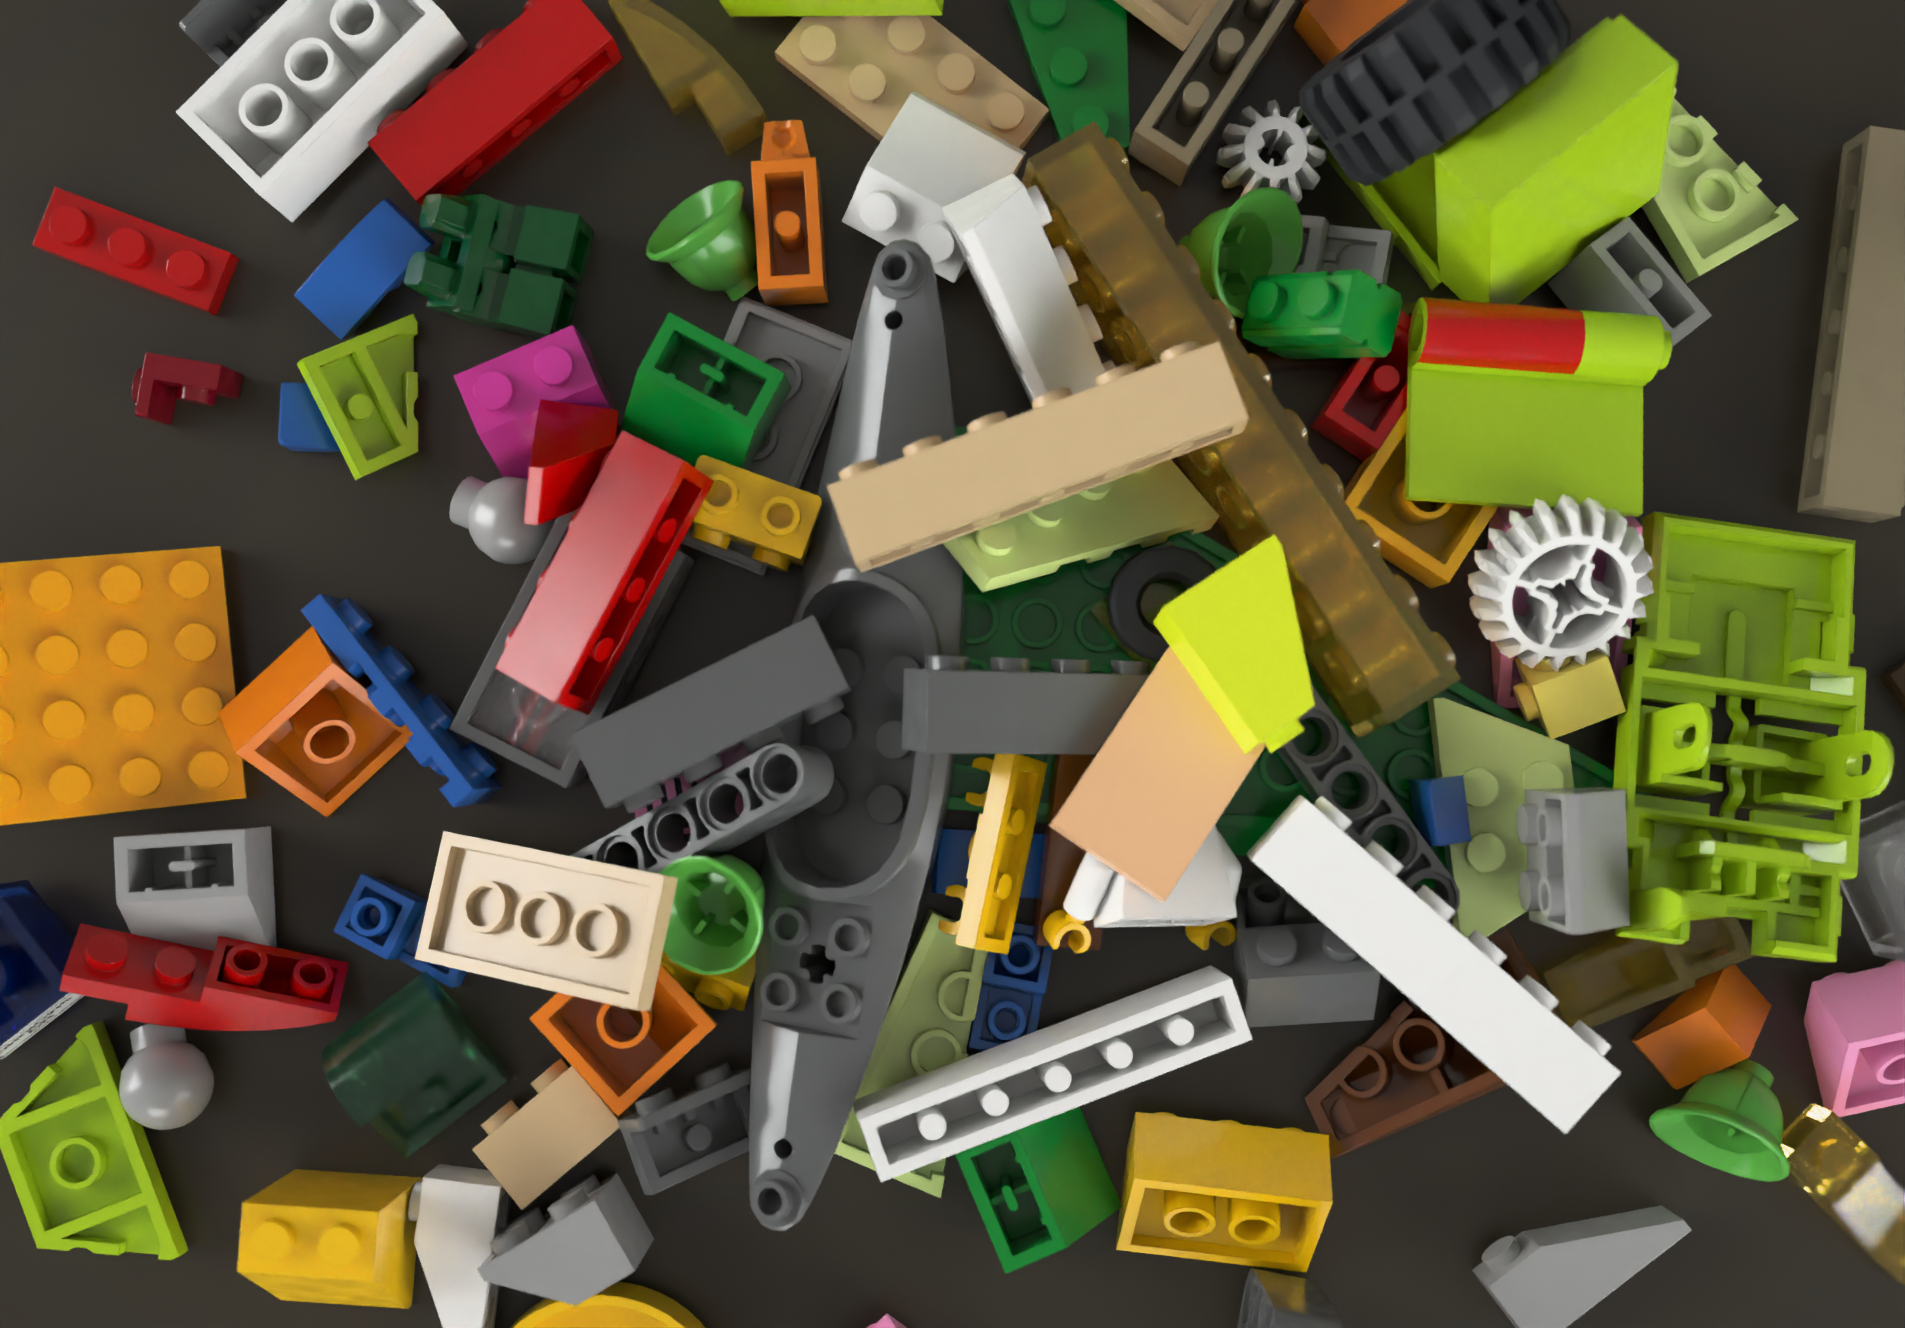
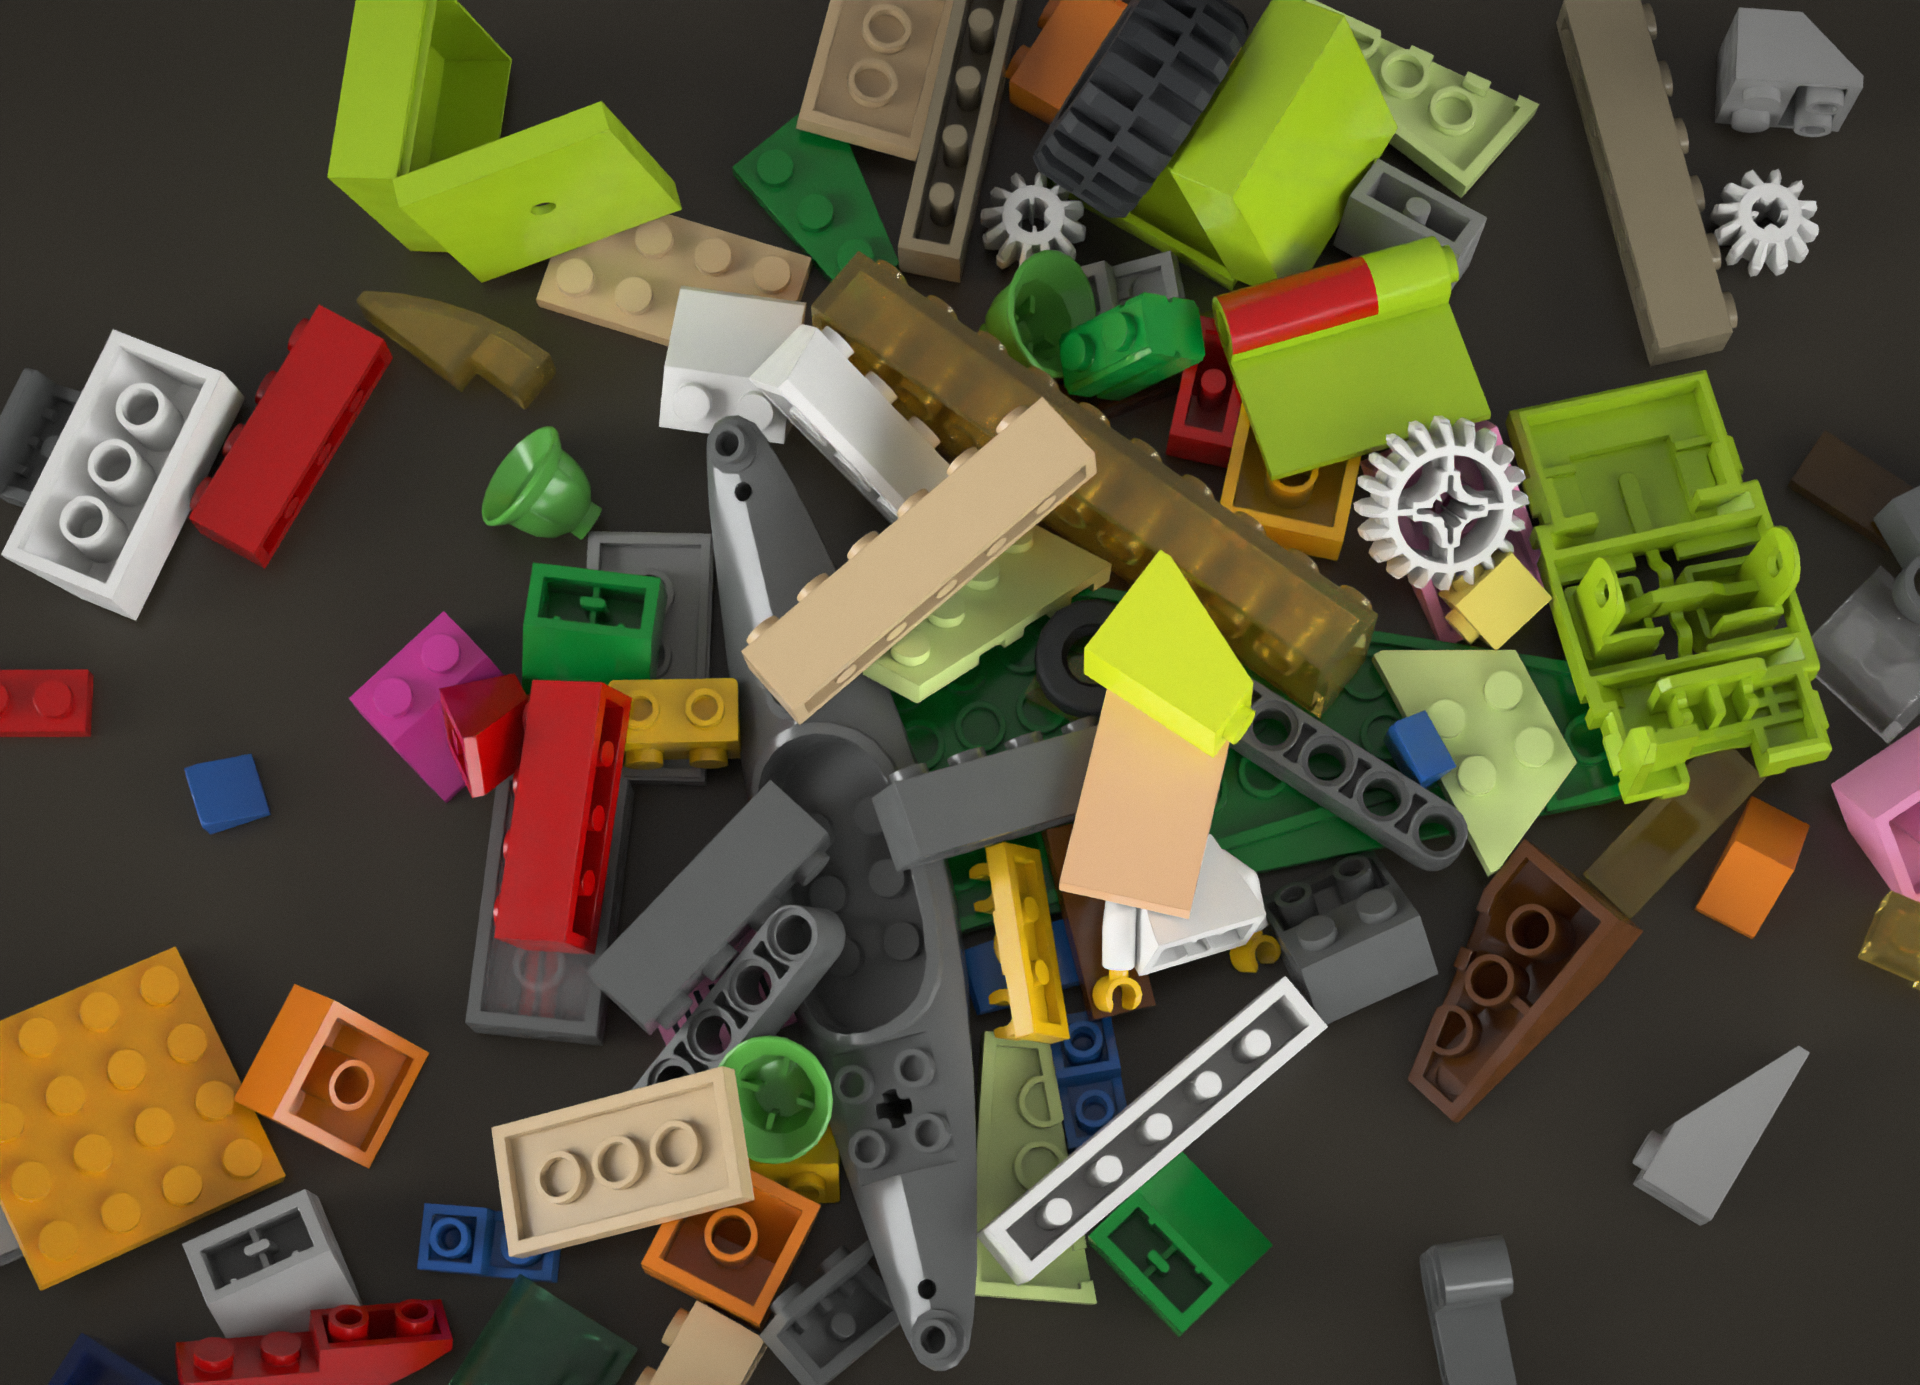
camera: 20 degrees left, 10 degrees down
(173, 378) = (95, 798): dark red bracket -> none
(363, 268) = (222, 637): blue slope -> none
(369, 395) = (269, 752): lime wing -> none
(394, 695) = (432, 1032): blue wing -> none
(496, 519) = (440, 817): light grey piece -> none
(501, 263) = (326, 588): dark green hips -> none
(788, 218) = (608, 443): orange hinge -> none
(1224, 1191) = (1362, 1193): yellow slope -> none
(1433, 963) = (1458, 881): white brick -> none
(1575, 858) = (1552, 740): light grey slope -> none
(1729, 1123) = (1806, 947): bright green hat -> none

